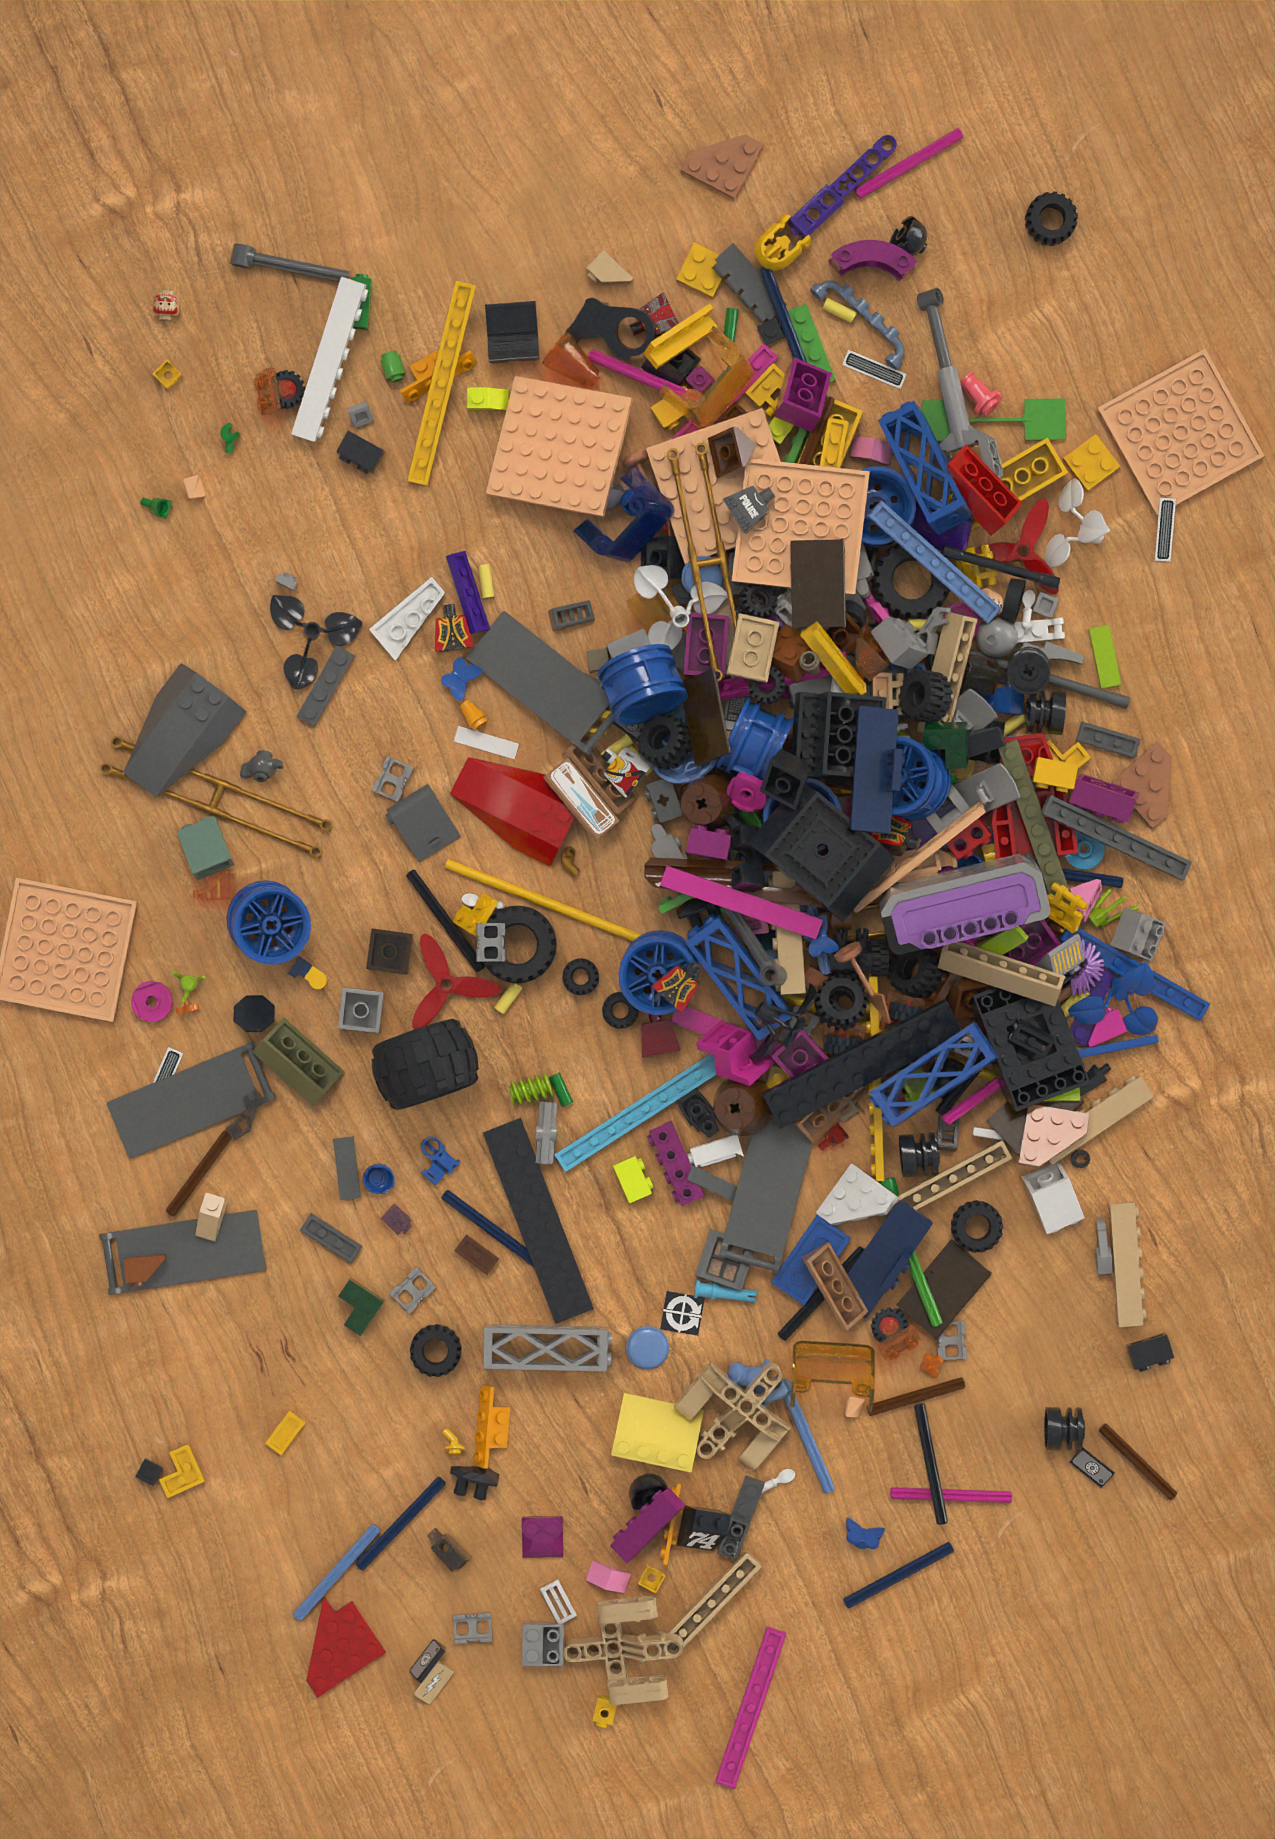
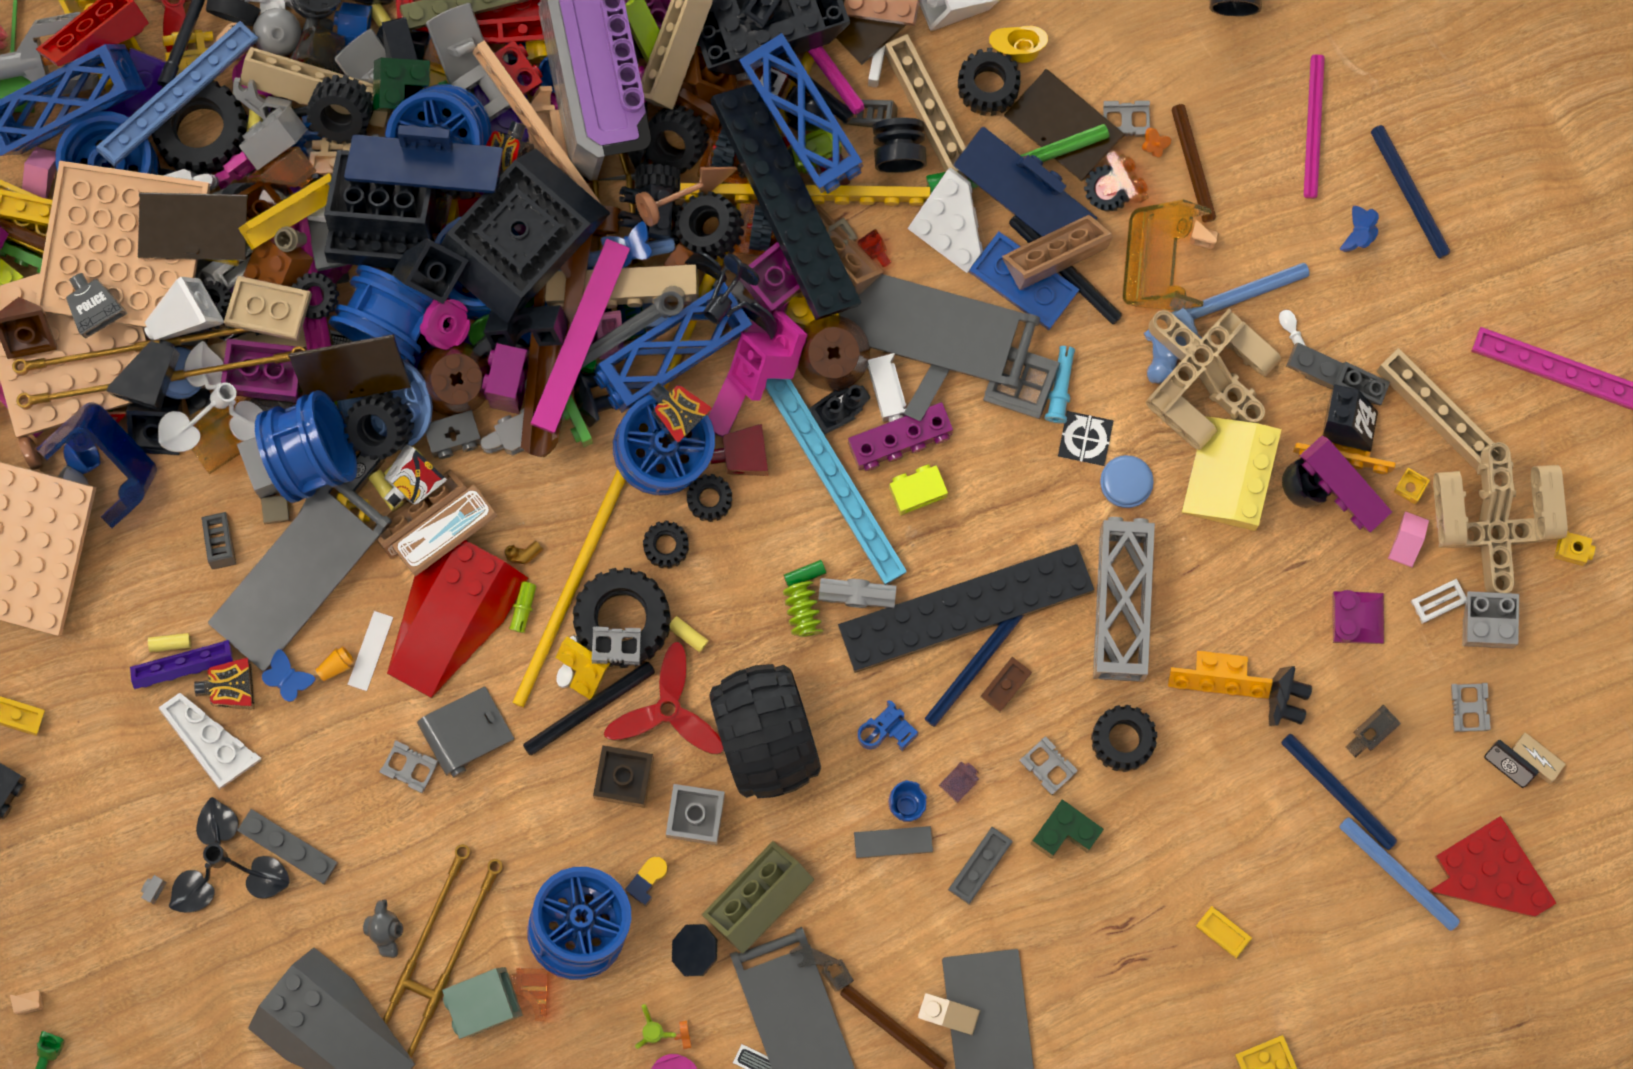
camera: 90 degrees left, 10 degrees down
(454, 1447) = (1245, 720): yellow plate -> none
(524, 863) = (523, 607): none -> lime axle
(692, 554) = (147, 375): none -> black slope
(744, 581) = (183, 311): none -> white slope
(931, 1464) = (1276, 146): black axle -> none
(1011, 1250) = (1019, 42): none -> yellow piece

